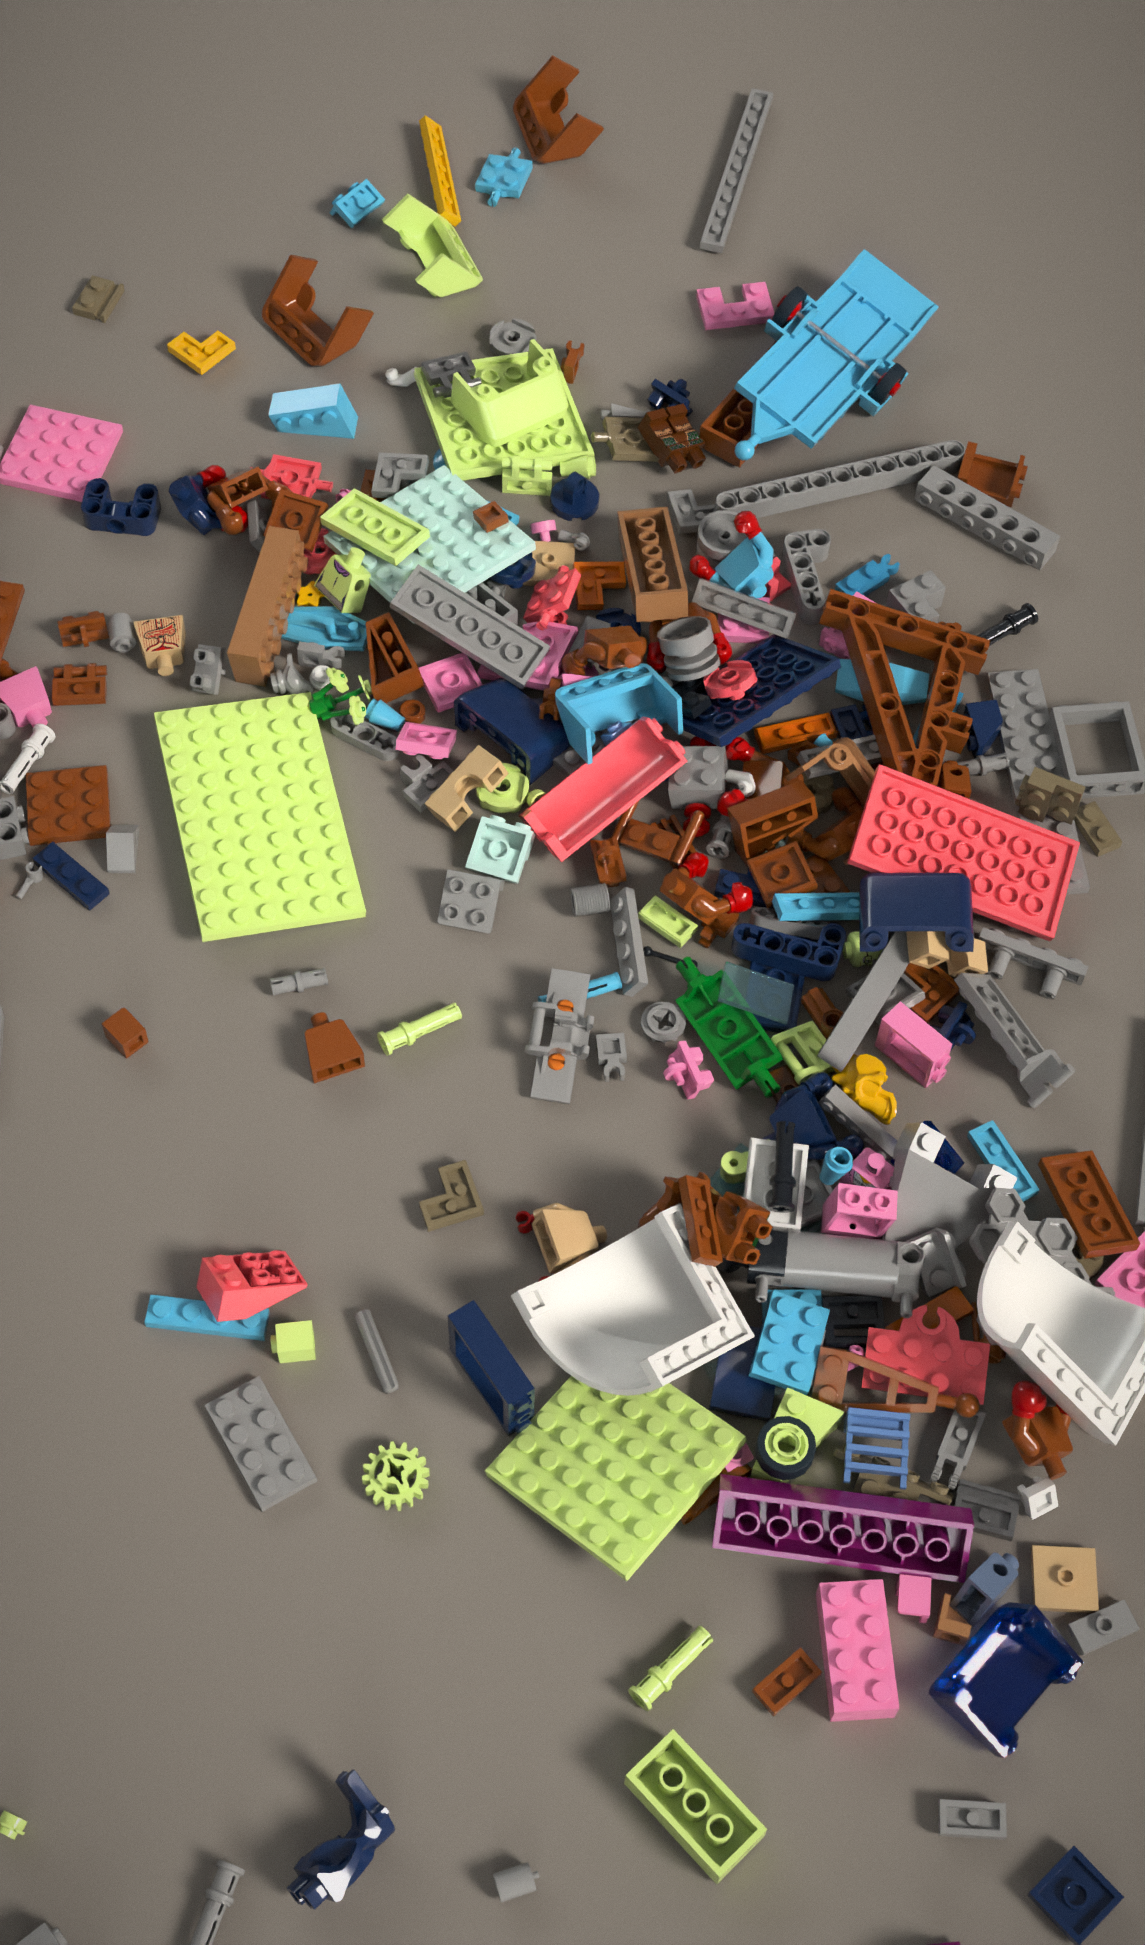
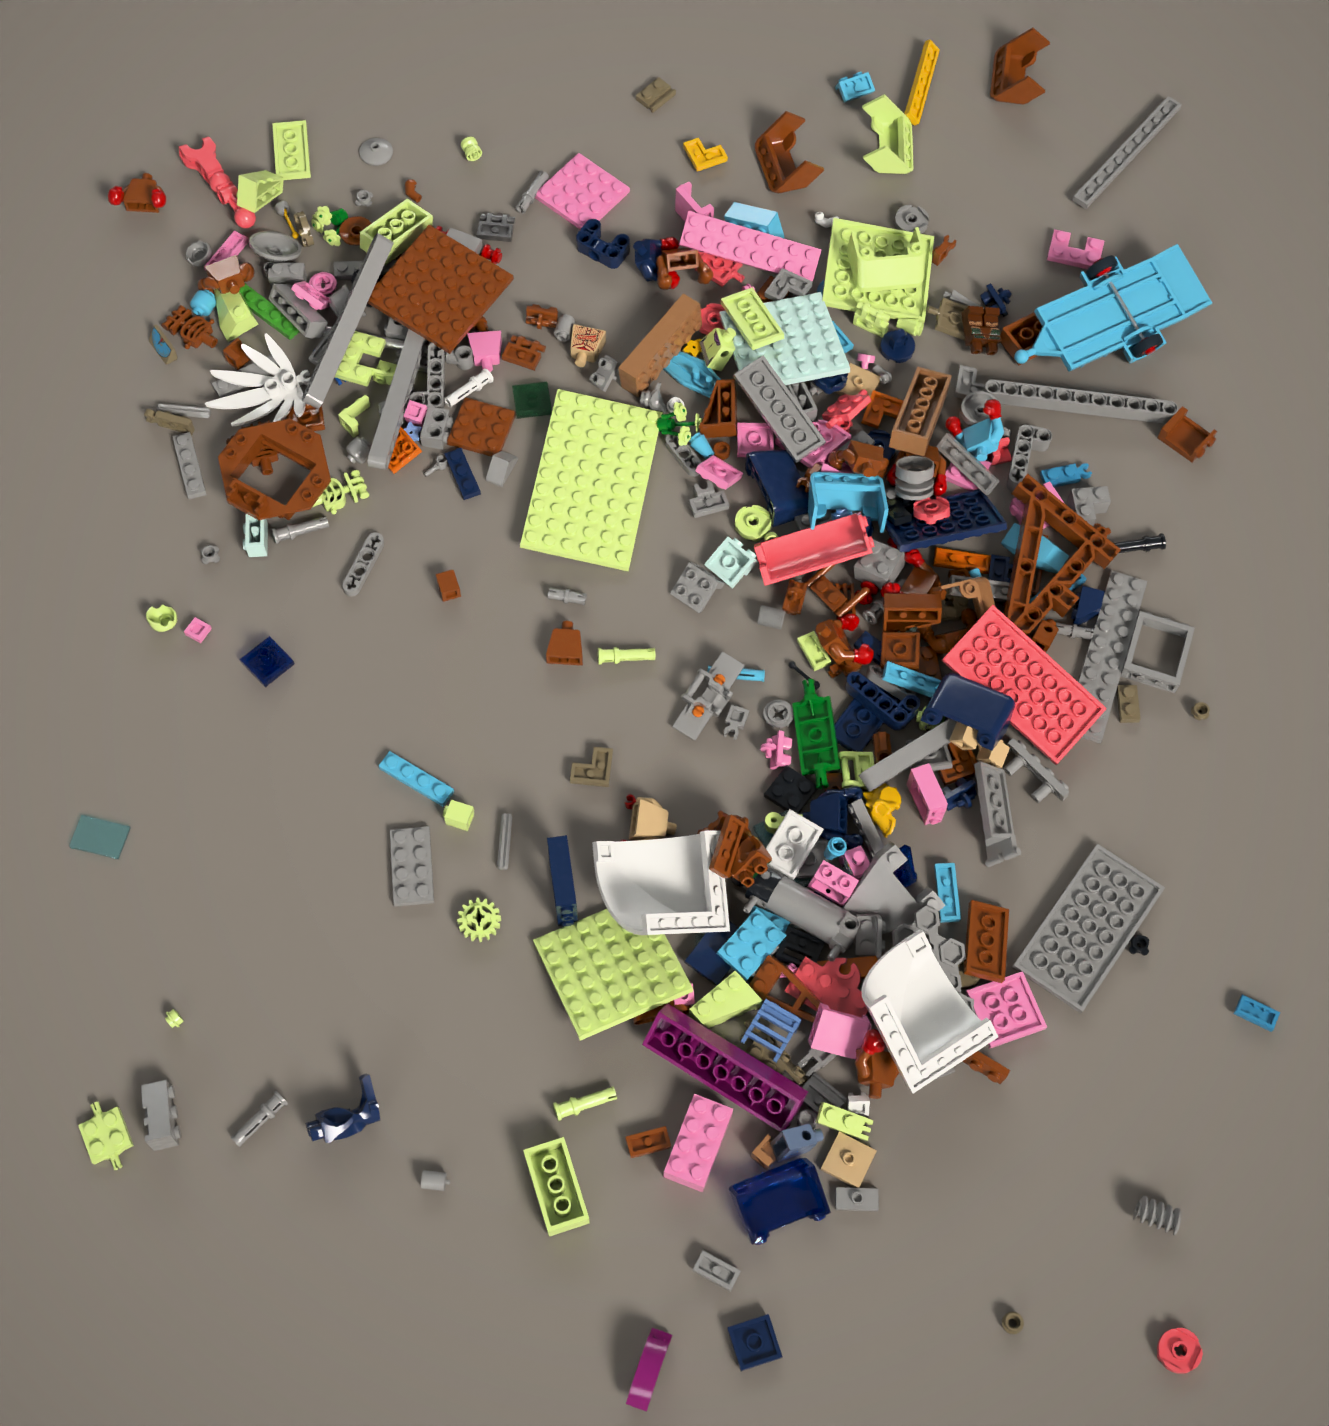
camera: 25 degrees right, 5 degrees up
(122, 742) = (532, 400): none -> clear green plate
(224, 425) = (686, 203): none -> bright pink panel
(247, 1283) = (447, 768): coral slope -> none
(256, 524) = (683, 286): light grey plate -> none
(300, 514) = (708, 293): dark orange plate -> none
(314, 655) = (677, 389): light grey plate -> none
(319, 440) = (748, 246): none -> bright pink plate
(442, 369) = (860, 226): flat silver plate -> none
(477, 770) = (715, 516): tan arch -> none
(490, 516) = (829, 339): dark orange tile -> none
(503, 176) = (964, 101): medium azure plate -> none
(628, 942) = (782, 653): light grey plate -> none
(730, 1116) = (790, 790): none -> black plate
(743, 779) = (907, 579): white arm -> none
(755, 993) = (843, 719): clear light blue piece -> none
(781, 1464) = (710, 1016): wheel -> none
(782, 1180) = (794, 844): black pin -> none
(914, 1596) = (749, 1128): bright pink panel -> none
(966, 1409) = (838, 1032): none -> bright pink panel
(982, 1548) = (807, 1117): none -> light grey tile
(987, 517) = (1176, 467): light grey brick -> none
(1031, 1528) = (843, 1121): none -> yellowish green hinge
(1049, 795) = (1101, 669): dark tan plate -> none

